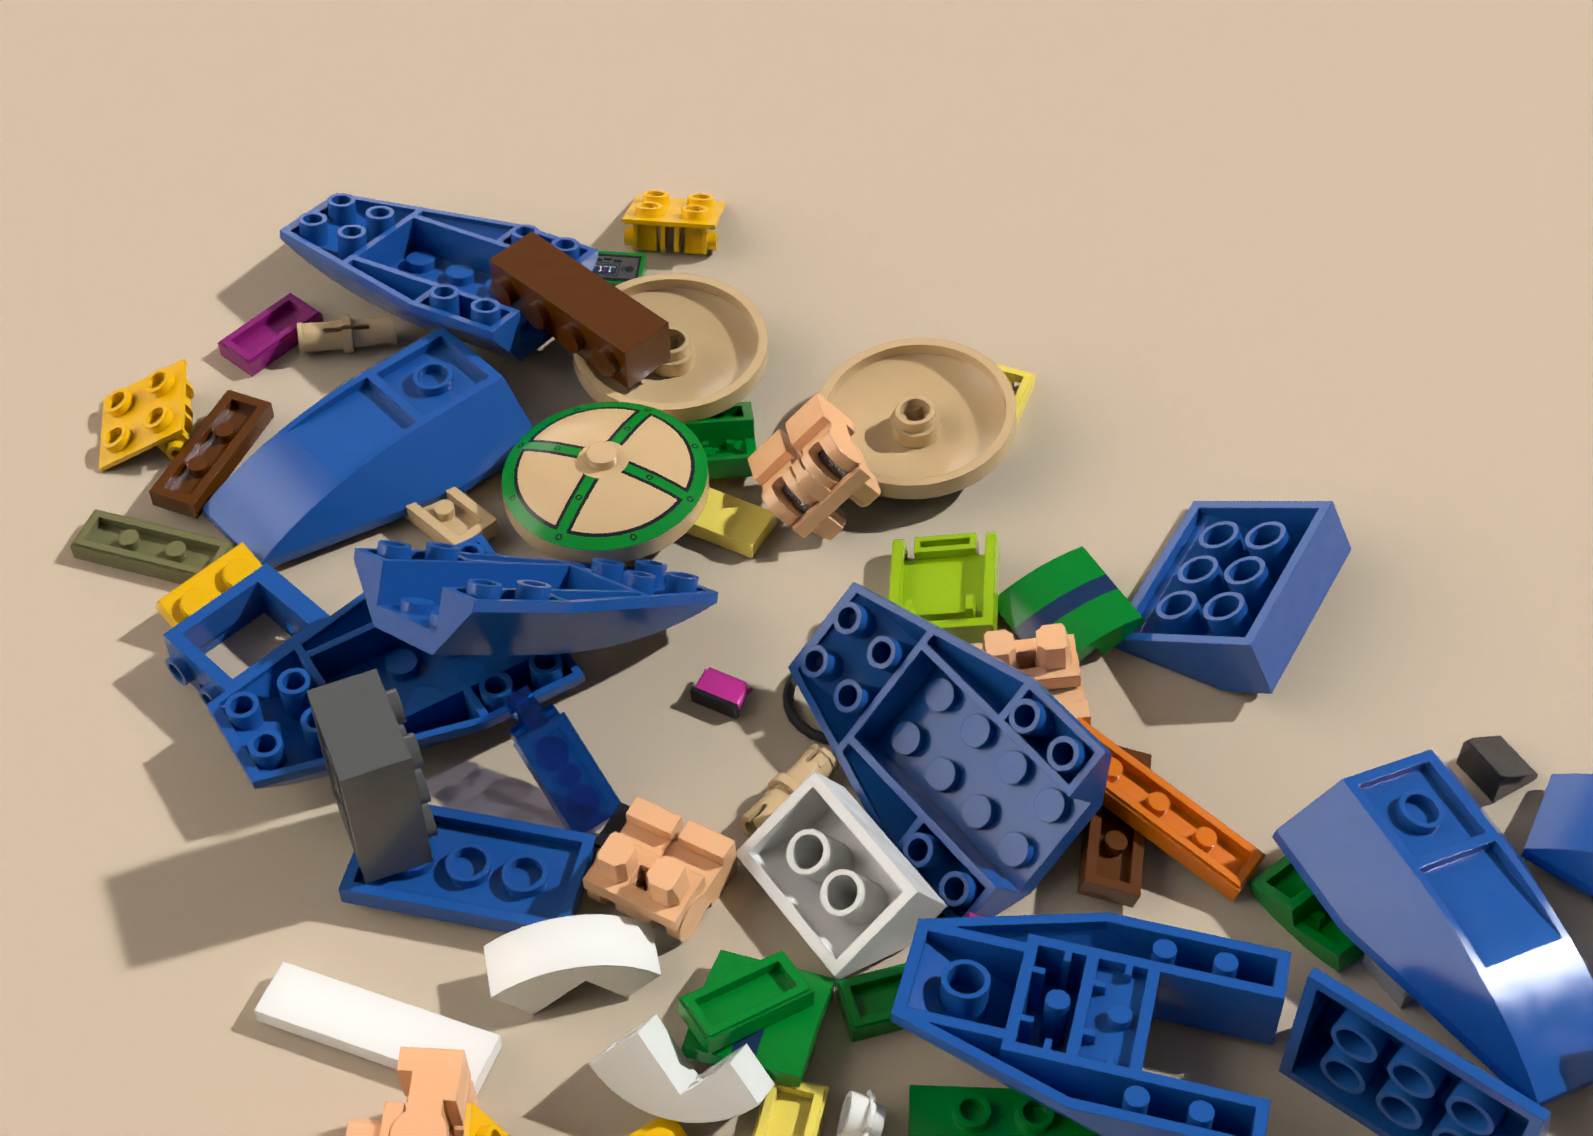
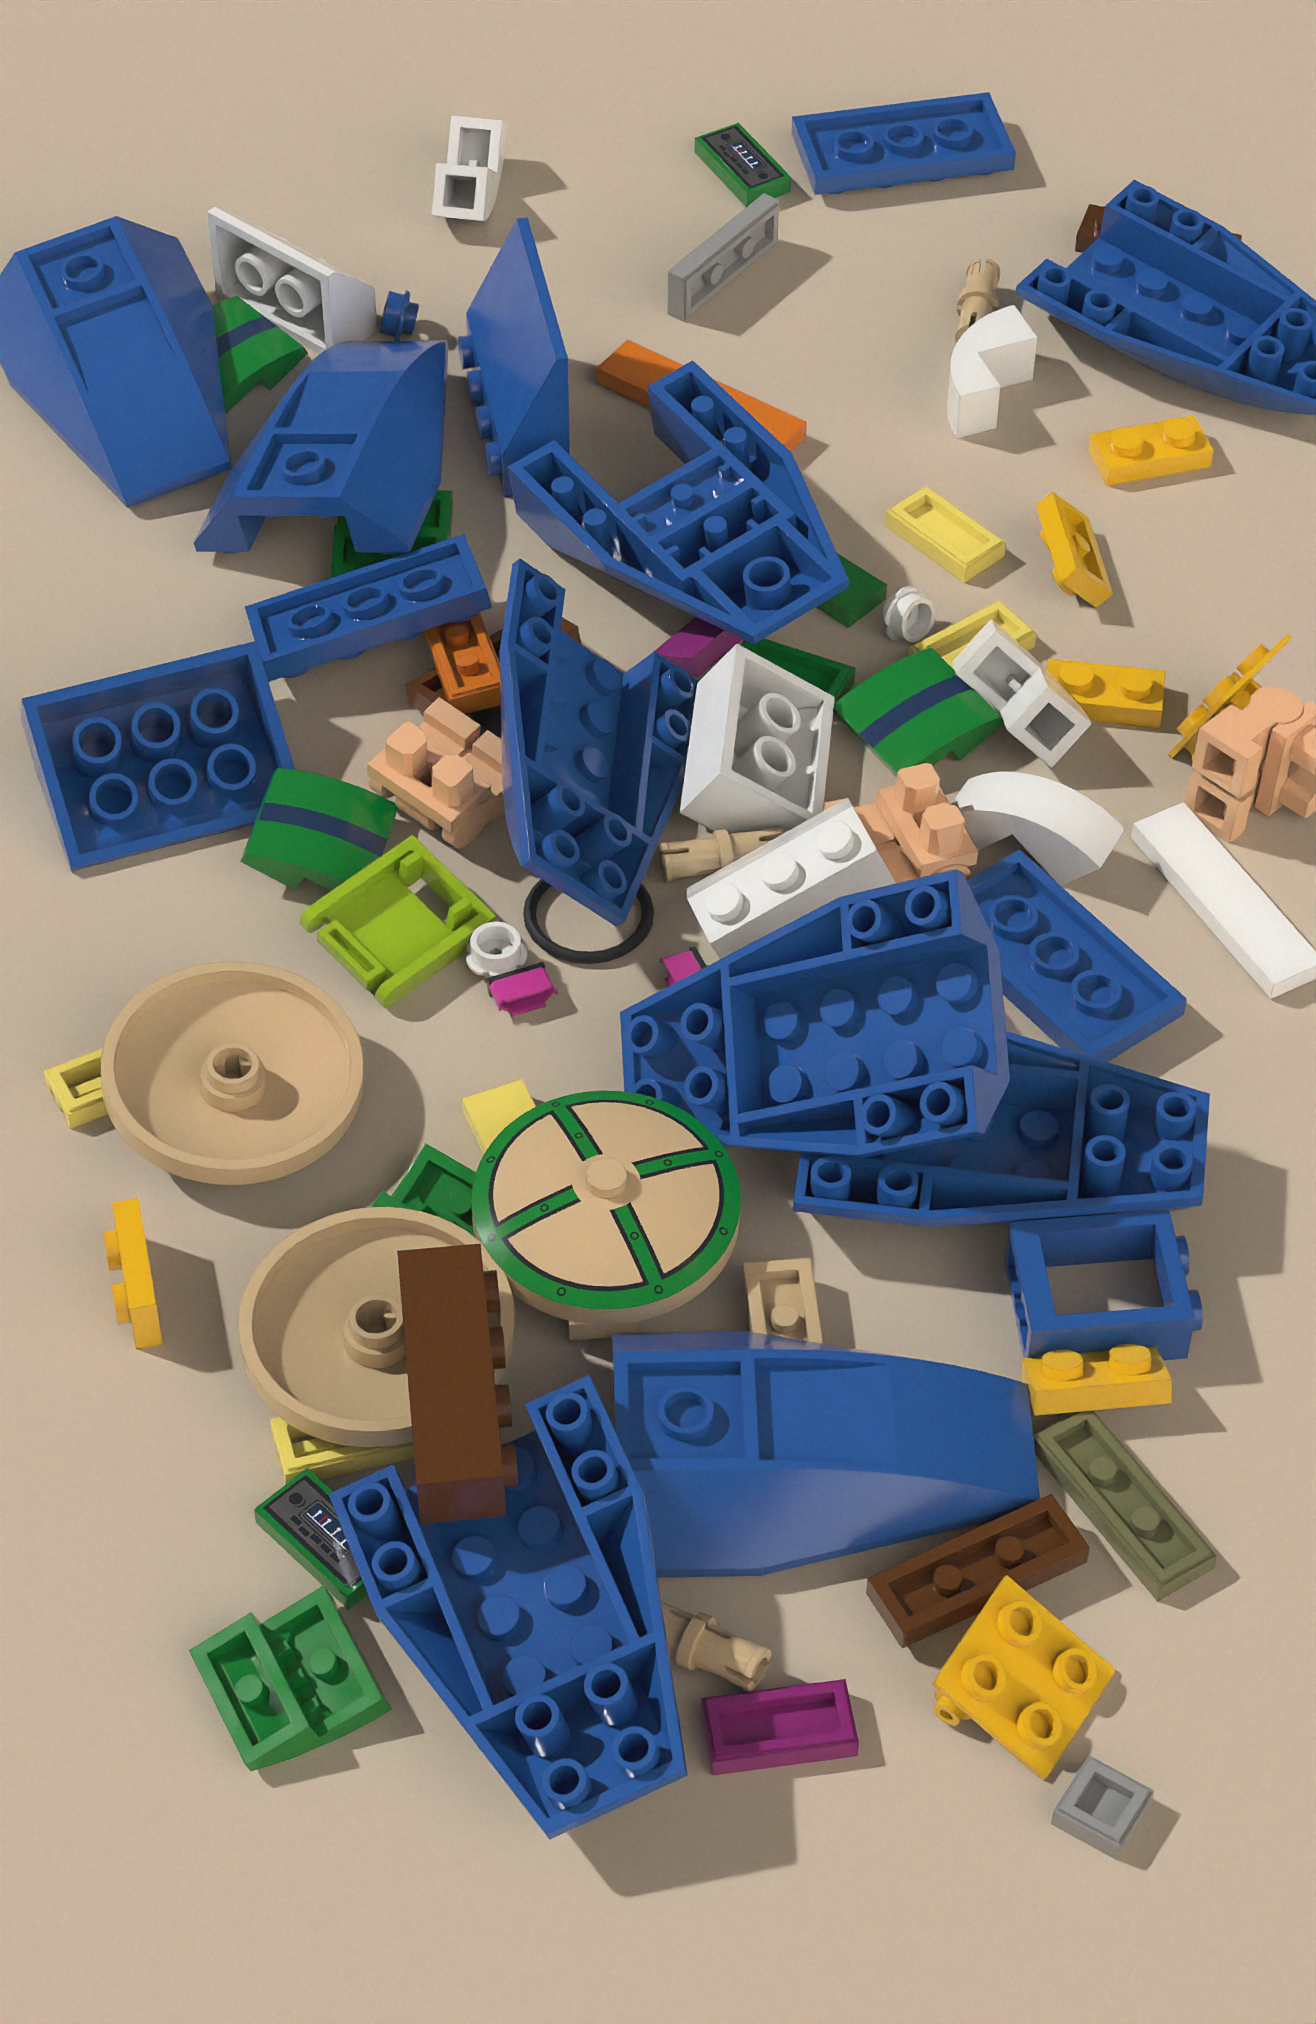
camera: 140 degrees left, 0 degrees up
(59, 398) = (1102, 1807): none -> light grey tile
(374, 774) = (1114, 953): dark grey brick -> none
(551, 203) = (289, 1680): none -> green slope
(656, 208) = (164, 1540): yellow hinge -> none
(699, 756) = (788, 879): none -> white slope
(745, 1001) = (927, 702): green tile -> none
(813, 470) = (405, 1065): light nougat hips -> none
(817, 608) = (521, 989): none -> dark pink piece
(840, 306) = (135, 1296): none -> yellow plate
(1243, 780) = (367, 608): none -> blue plate
(1494, 766) = (151, 533): black slope -> none

